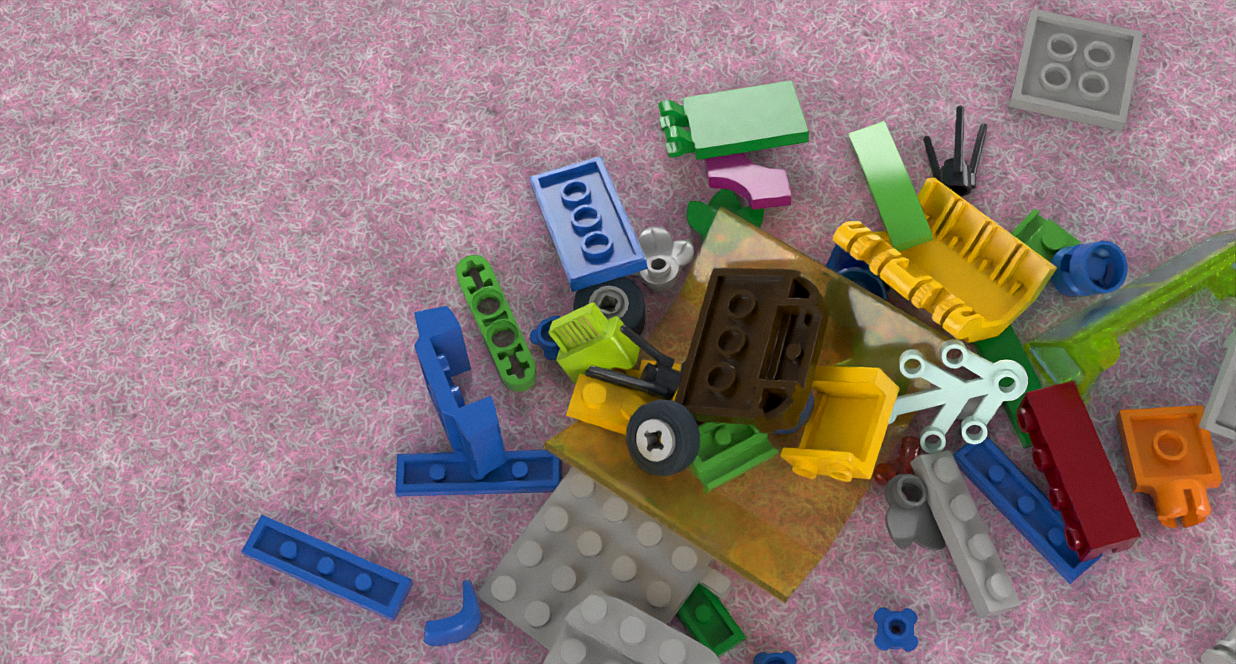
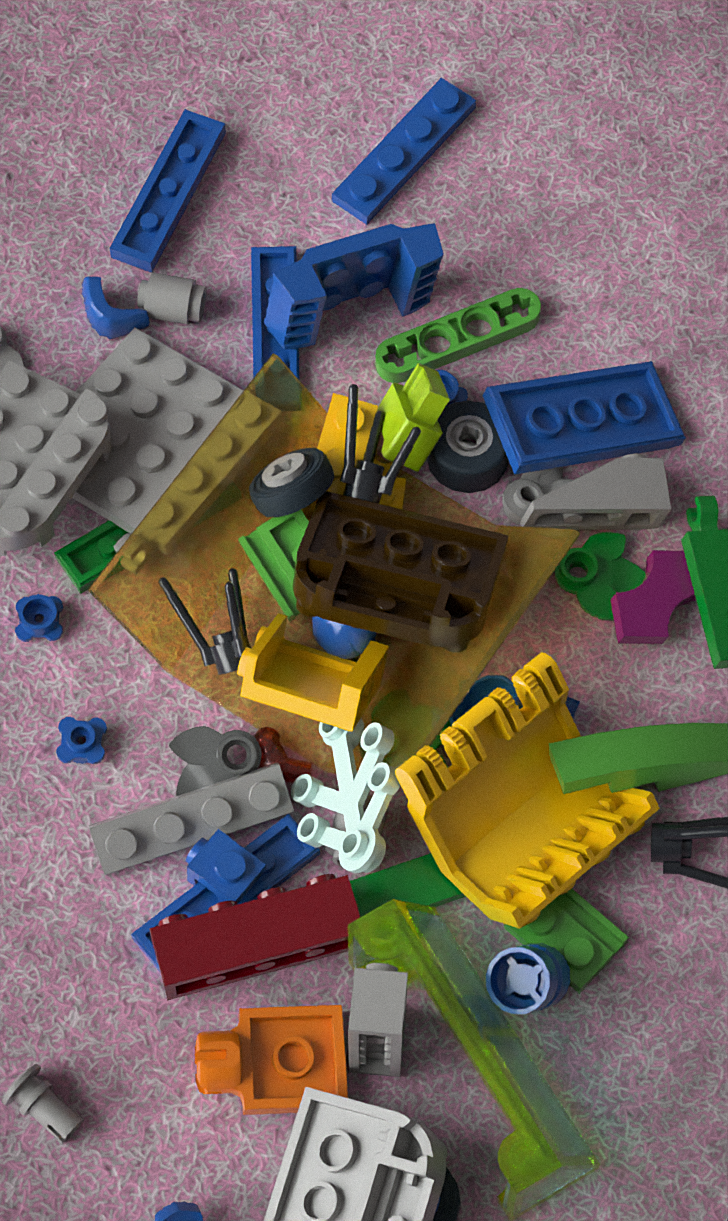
camera: 85 degrees right, 0 degrees up
(302, 365) = (403, 151): none -> blue plate
(448, 559) = (172, 298): none -> light grey brick
(661, 206) = (615, 496): none -> light grey slope
(810, 497) = (227, 645): none -> black plant
(1012, 502) = (223, 867): none -> blue bracket
(1154, 365) = (377, 1020): none -> light grey brick

